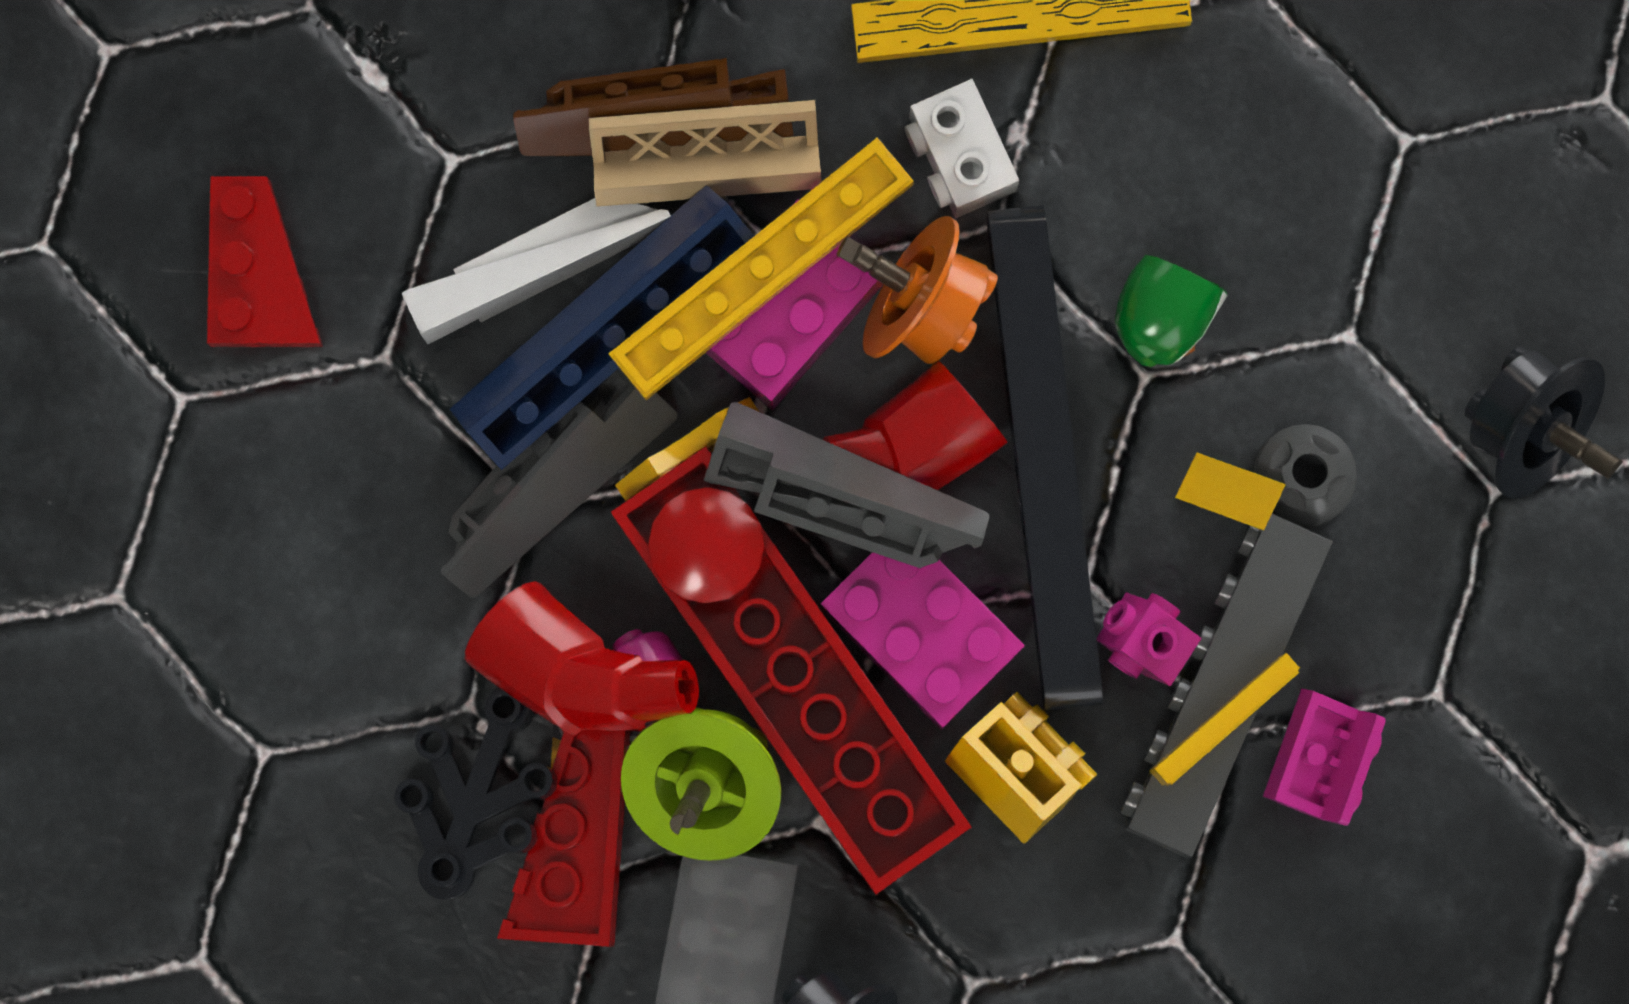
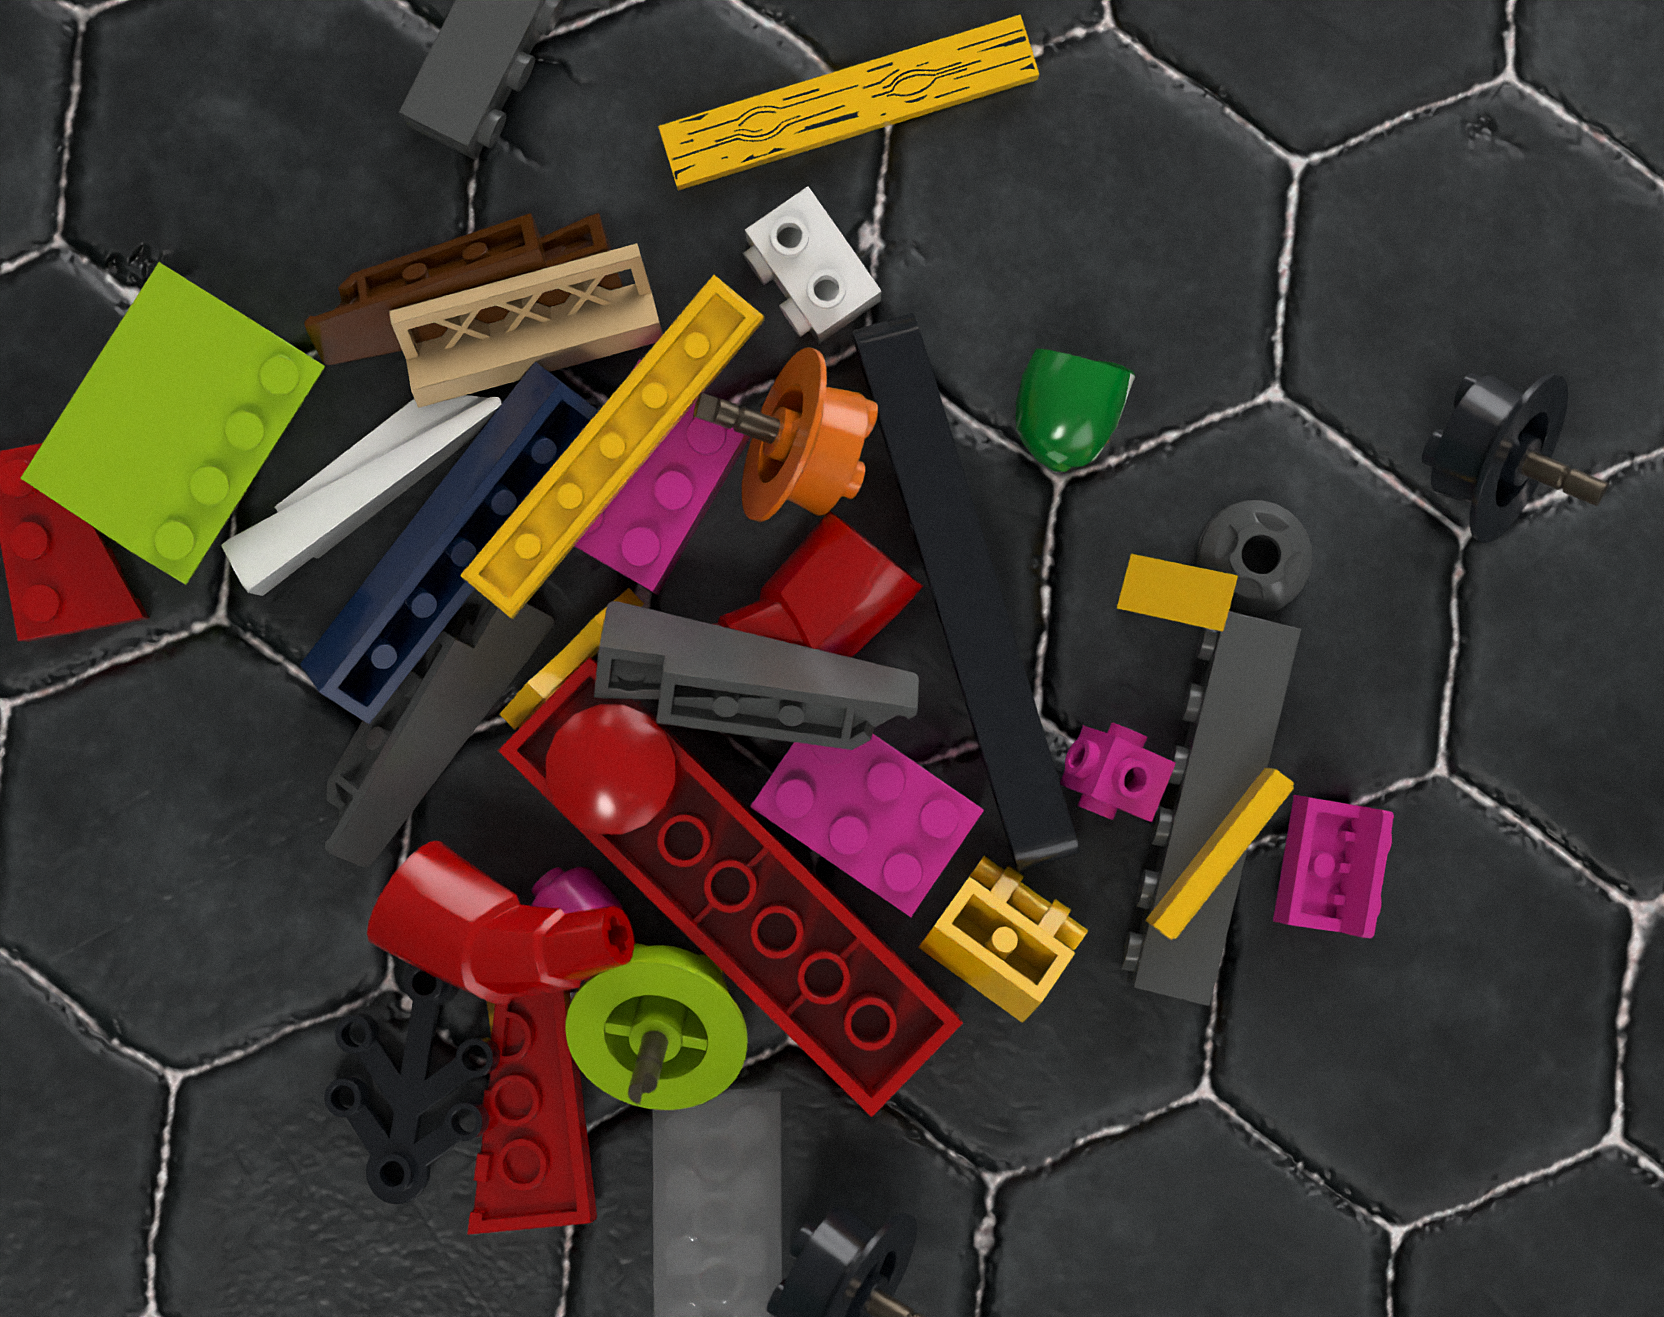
camera: 15 degrees left, 5 degrees up
(382, 179) = (172, 423): none -> lime slope

